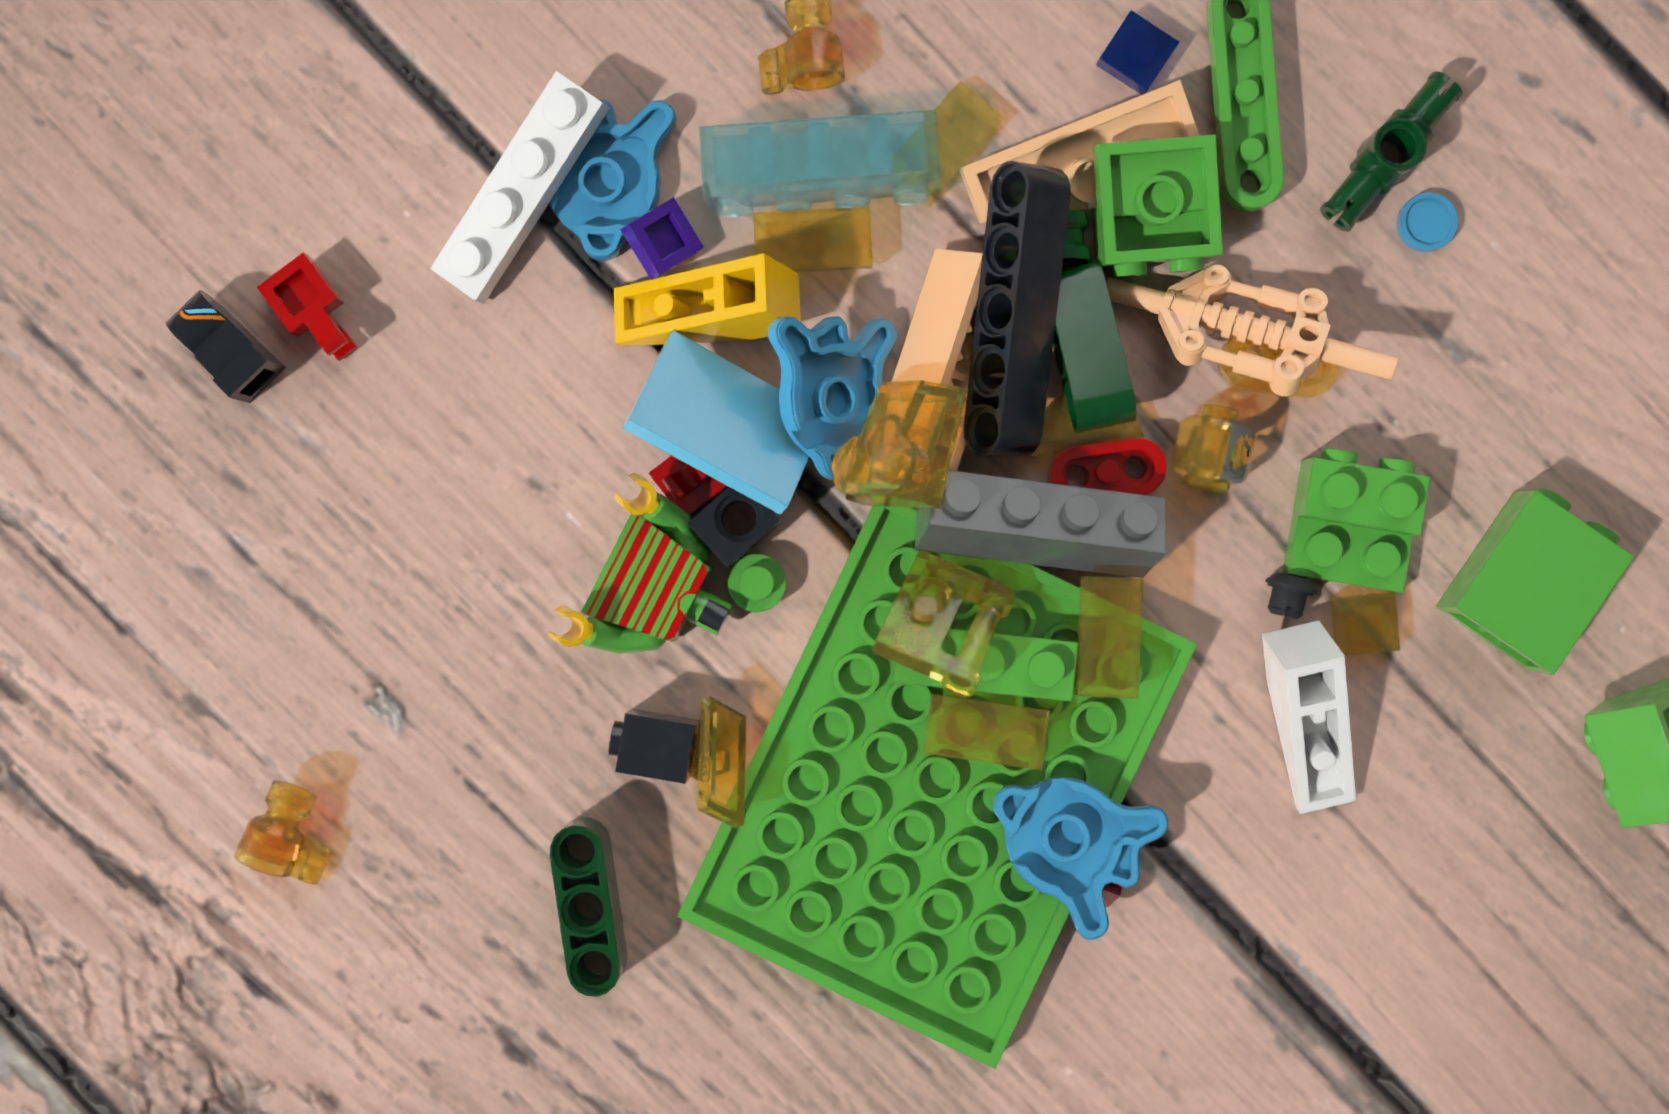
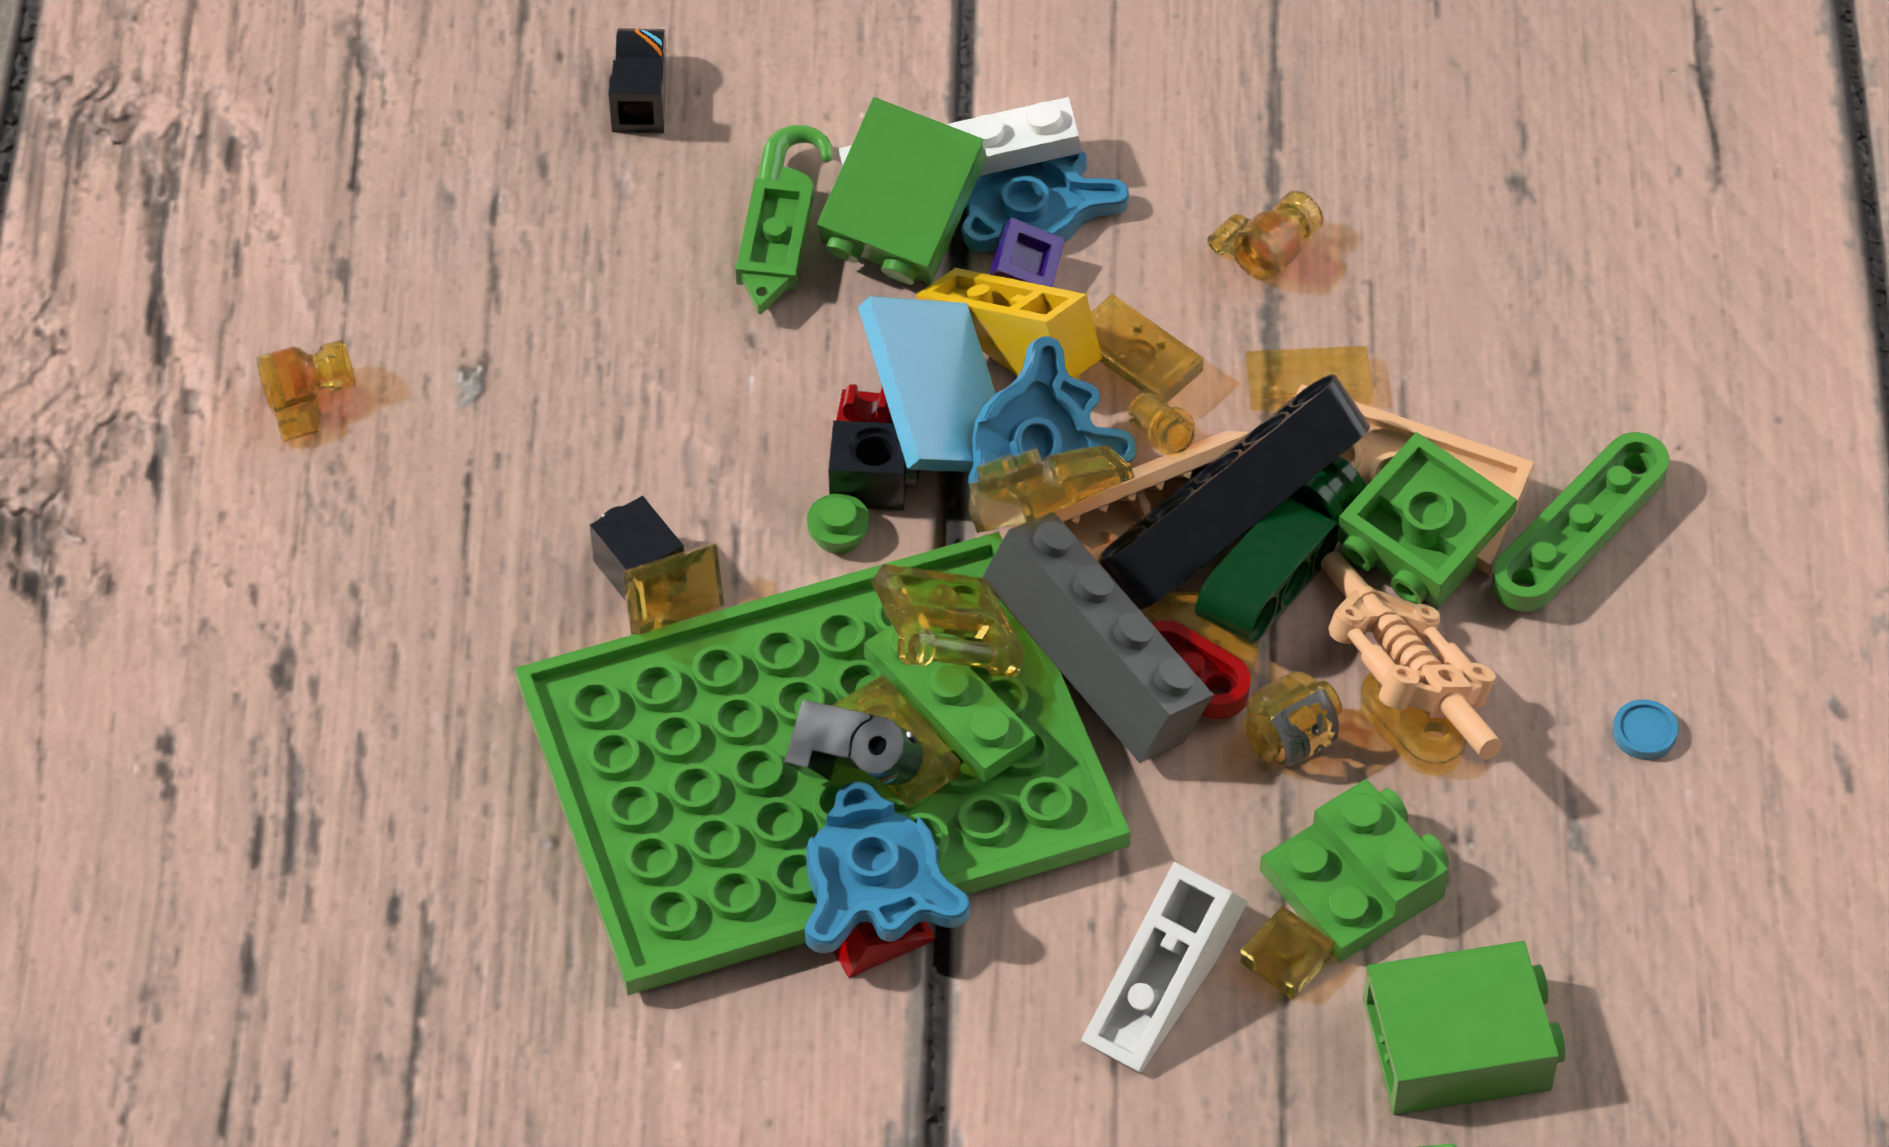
camera: 45 degrees right, 35 degrees down
(305, 302) = (727, 96): red plate -> none
(452, 371) = (778, 218): none -> bright green plate
(529, 279) = (901, 192): none -> bright green brick
(578, 931) = (451, 635): dark green beam -> none
(648, 582) = (759, 446): torso -> none
(820, 162) = (1201, 301): clear light blue brick -> none
(910, 294) = (1167, 427): none -> clear yellow pin
(984, 780) = (854, 739): none -> leg
(1109, 637) = (1063, 752): clear yellow plate -> none
(1137, 53) = (1527, 433): clear blue plate -> none
(1289, 595) = (1247, 873): black piece -> none
(1410, 132) = (1635, 650): dark green pin -> none

